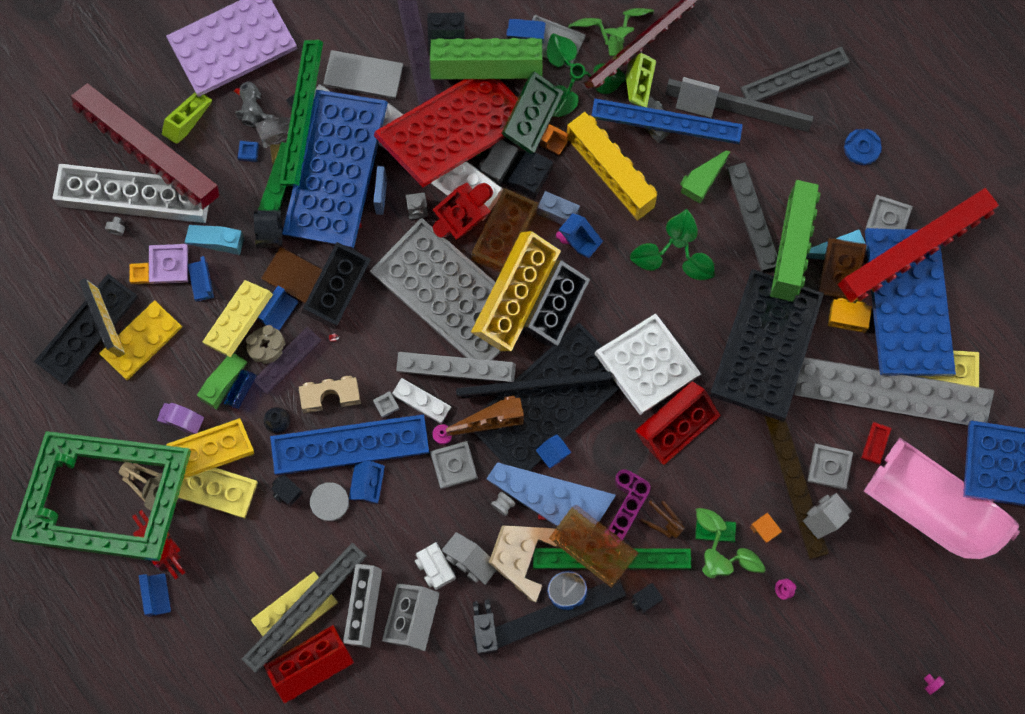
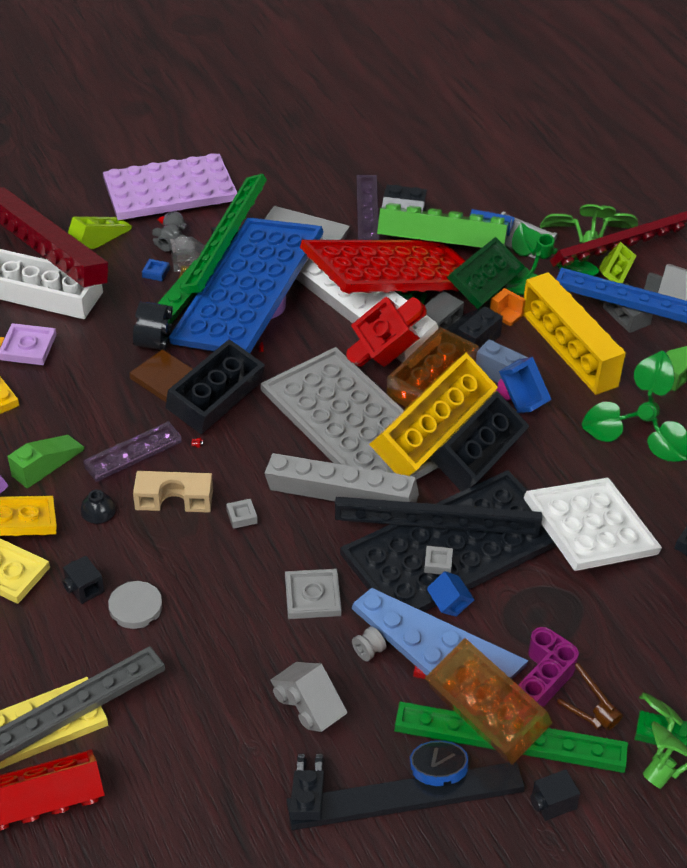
camera: 10 degrees right, 30 degrees down
(200, 280) = (59, 364): blue panel -> none
(215, 238) = (93, 330): medium azure slope -> none
(237, 318) = (87, 399): light yellow plate -> none
(240, 389) = (63, 467): clear blue tile -> none
(261, 336) = (111, 430): dark tan plate -> none
(278, 309) = (136, 402): blue panel -> none
(349, 444) = (183, 546): blue plate -> none
(362, 605) = (139, 726): light grey brick -> none
(367, 482) = (193, 589): blue panel -> none
(380, 190) = (293, 313): medium blue tile -> none
(411, 616) = (205, 755): light grey slope -> none
(417, 206) = (333, 334): light grey brick -> none
(421, 401) = (289, 520): white plate -> none
(435, 566) = (257, 700): white brick -> none
(439, 438) = (306, 558): dark pink tile -> none
(499, 415) = (374, 540): dark orange wedge -> none
(513, 555) = (372, 697): tan wing -> none
(540, 425) = (438, 560): none -> light grey plate
(678, 422) = (625, 595): red slope -> none

